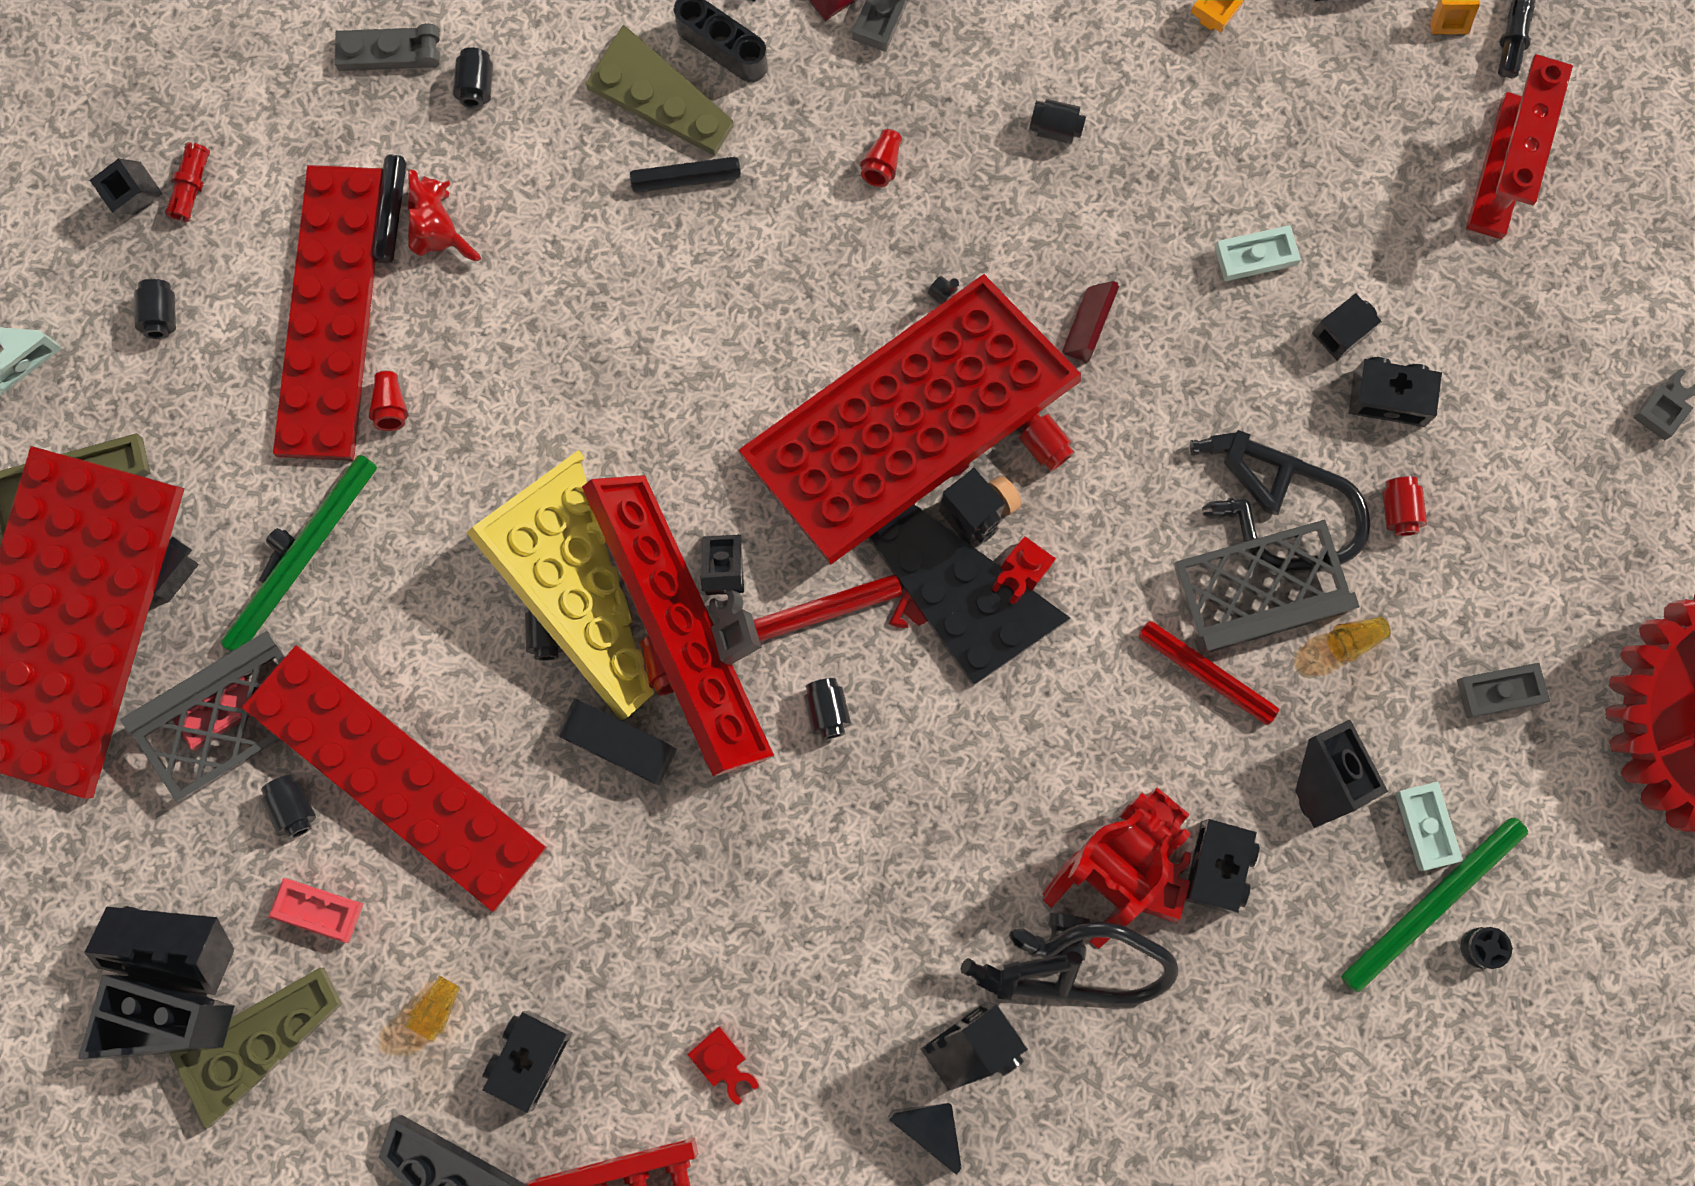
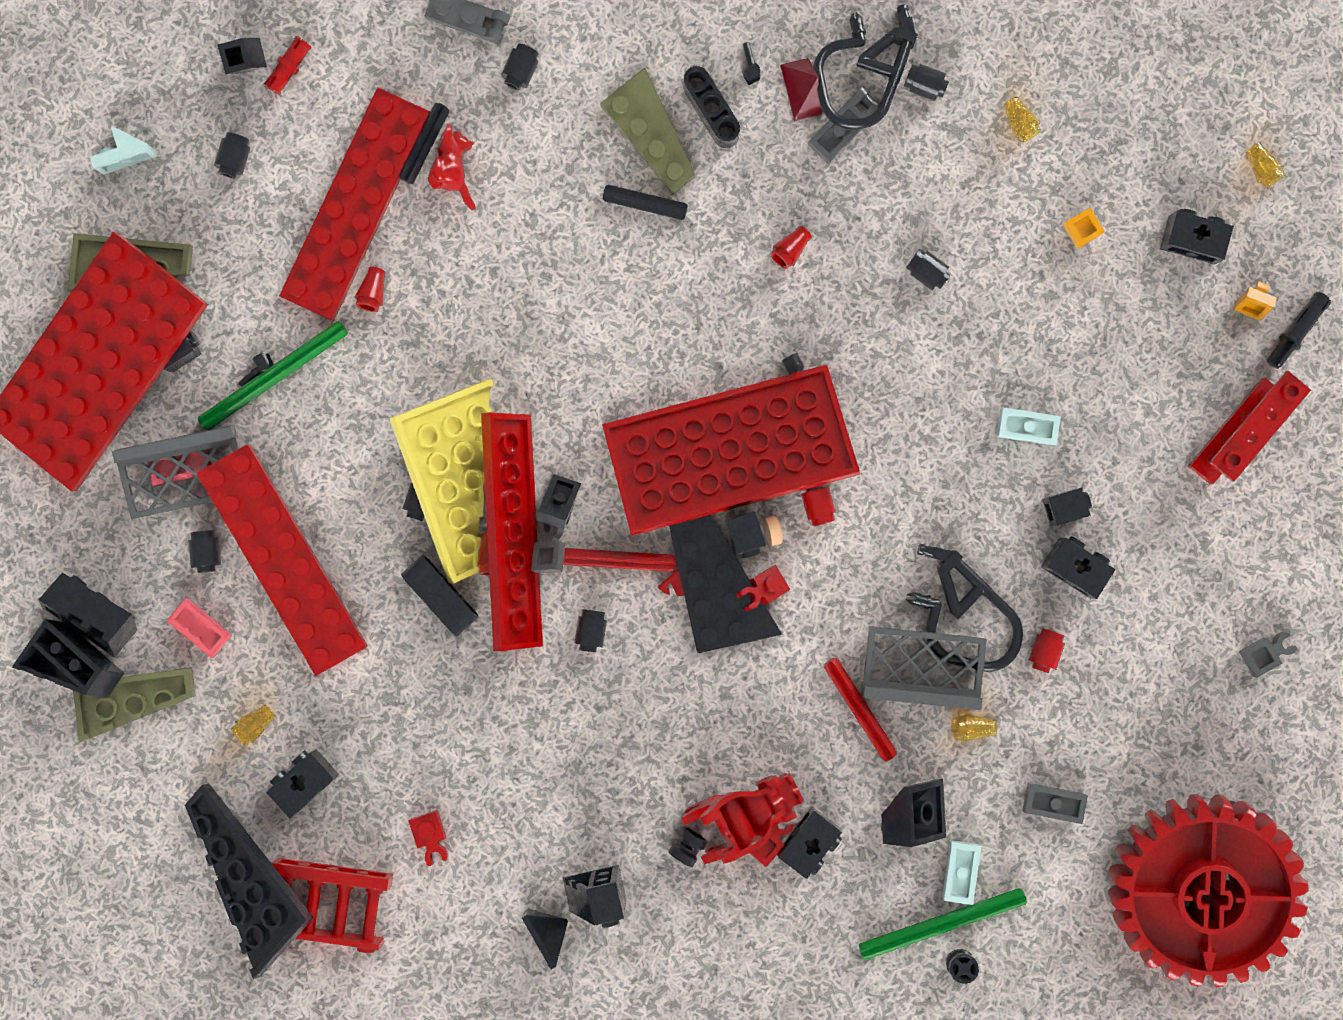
camera: 15 degrees right, 10 degrees up
(1013, 976) = (670, 860): black piece -> none
(1090, 320) = (888, 428): dark red slope -> none

